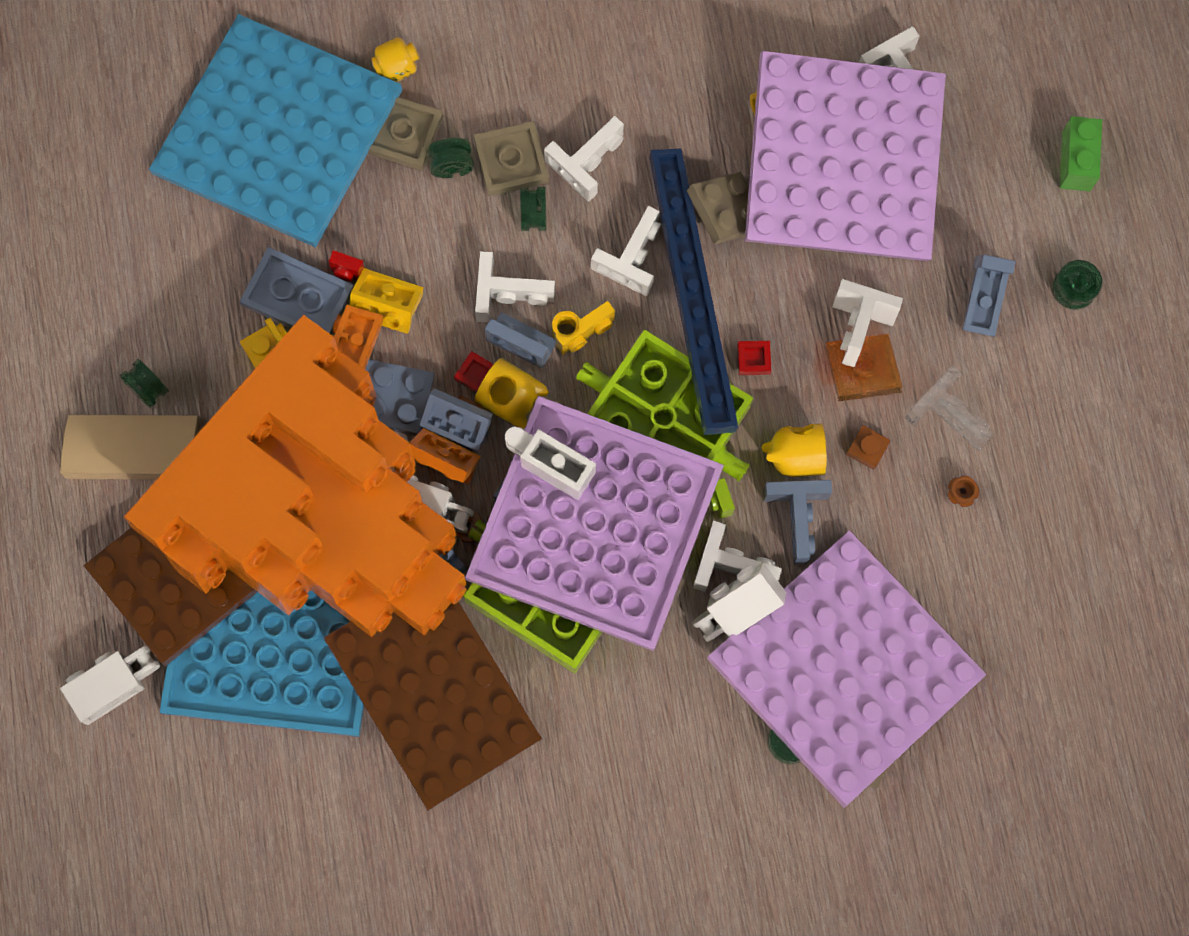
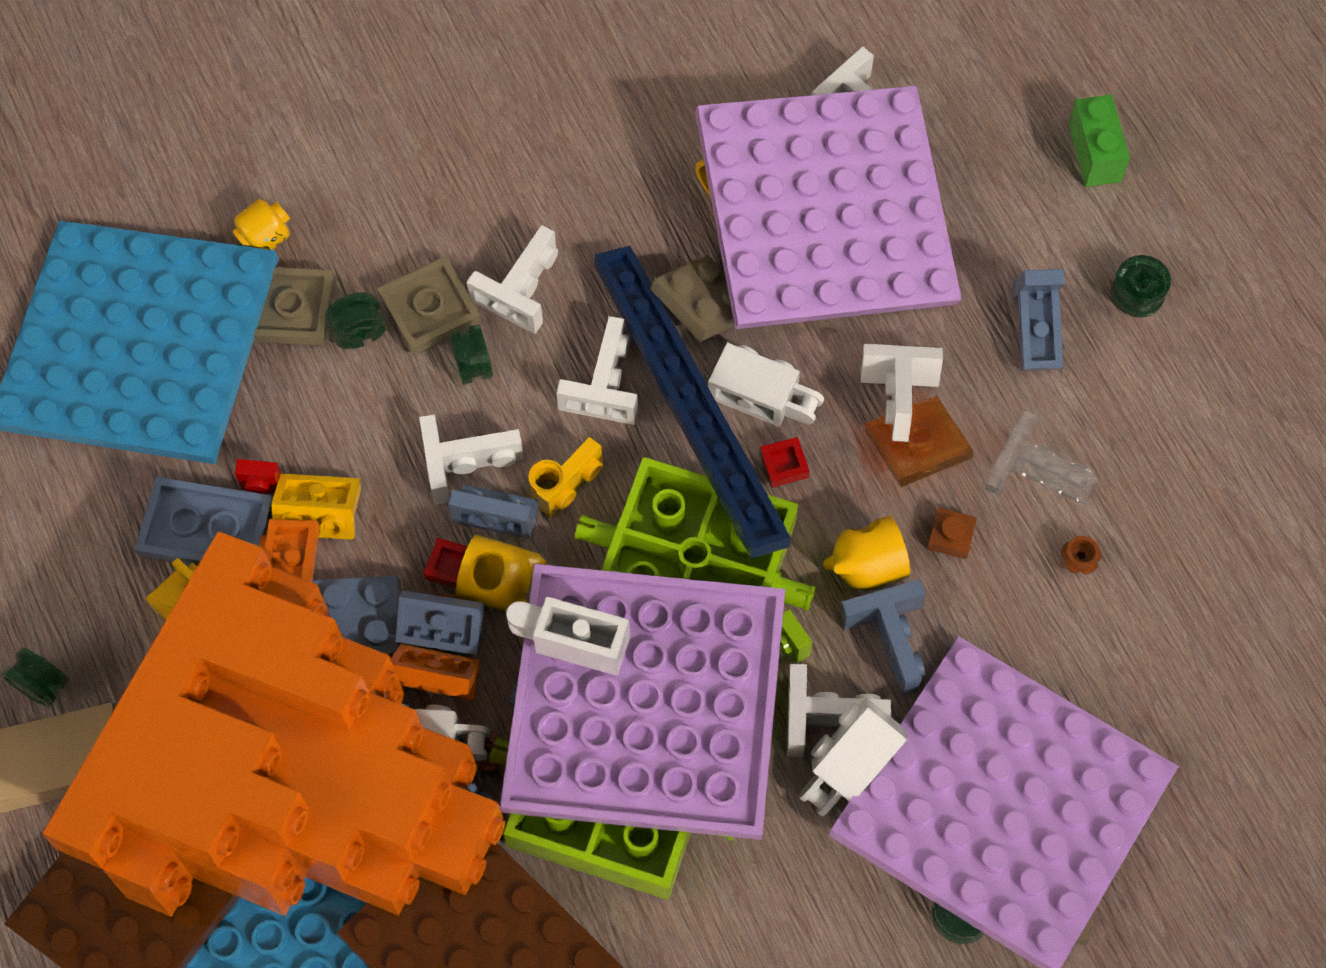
camera: 10 degrees left, 10 degrees down
(753, 292) = (762, 387): none -> white brick

